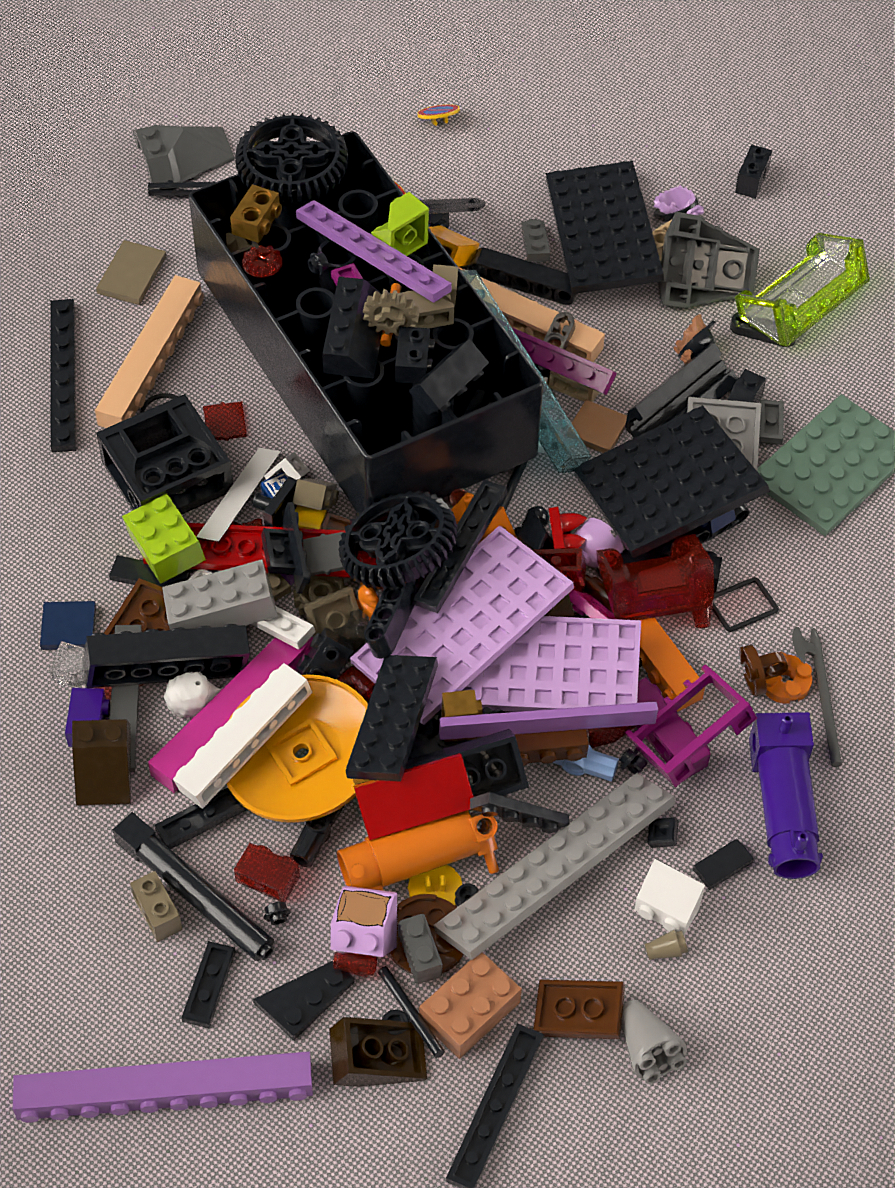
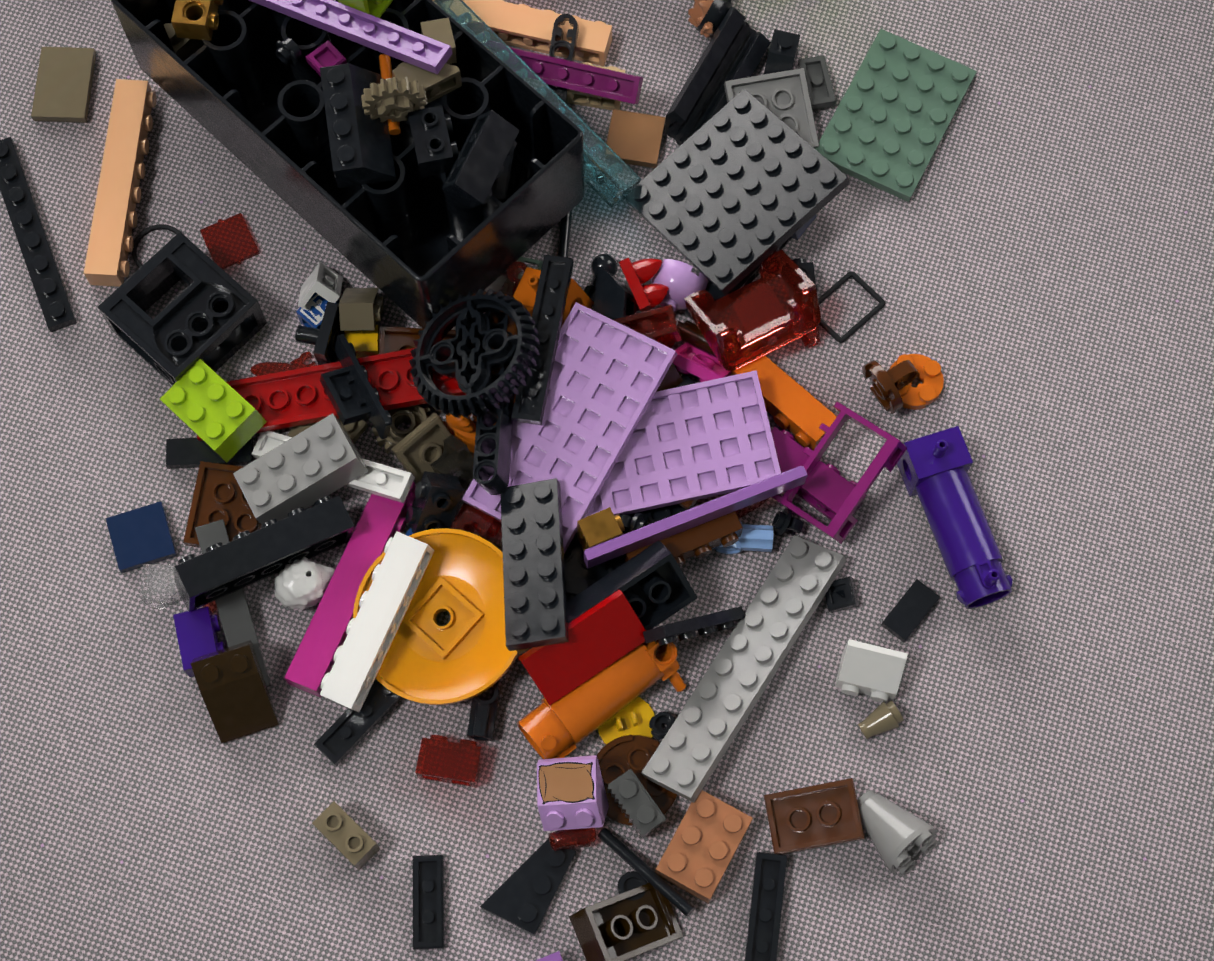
camera: 15 degrees left, 15 degrees up
(142, 844) = (377, 802): black brick -> none
(238, 494) = (275, 330): white sticker -> none
(258, 267) = (223, 75): clear red gear -> none
(276, 913) = (473, 803): black plate -> none
(323, 554) = (395, 383): dark grey piece -> none
(815, 649) = (935, 340): dark grey piece -> none

